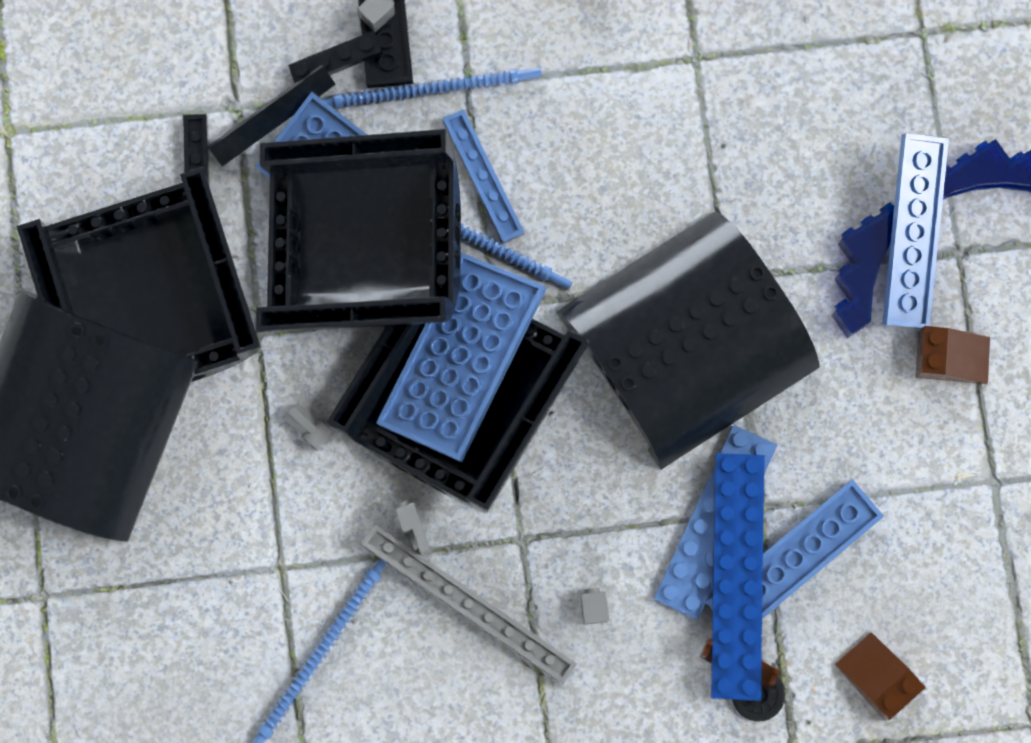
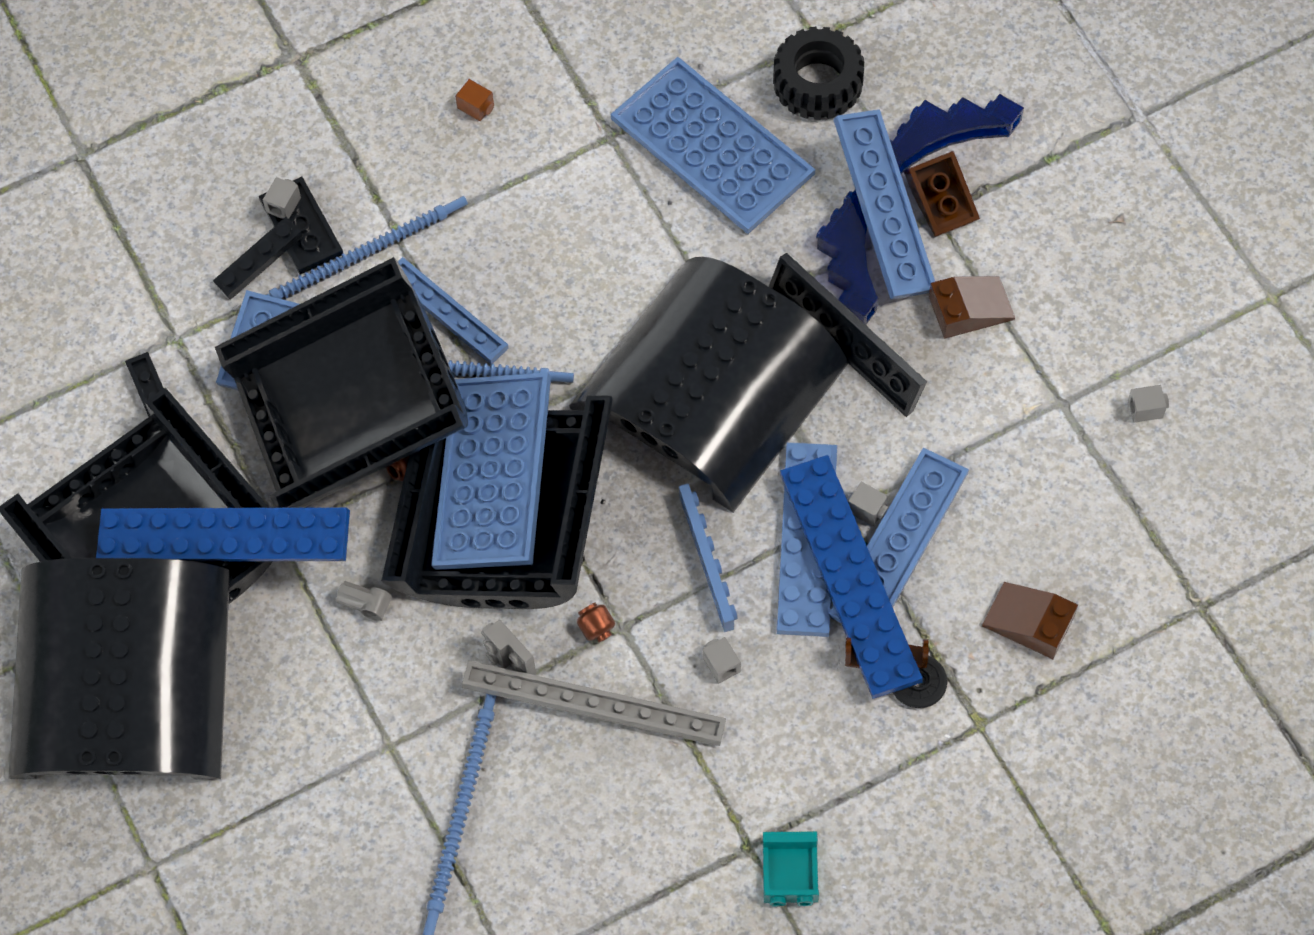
camera: 15 degrees left, 15 degrees down
(203, 330) = (225, 534): none -> blue plate
(270, 116) = (212, 331): black tile -> none
(499, 529) = (595, 622): none -> copper head
(620, 517) = (711, 566): none -> medium blue plate
(782, 513) = (868, 504): none -> light grey brick
(784, 104) = (713, 145): none -> medium blue plate
(832, 351) = (861, 346): none -> black plate
(929, 52) = (818, 47): none -> black tyre
(972, 236) = (942, 193): none -> reddish brown slope

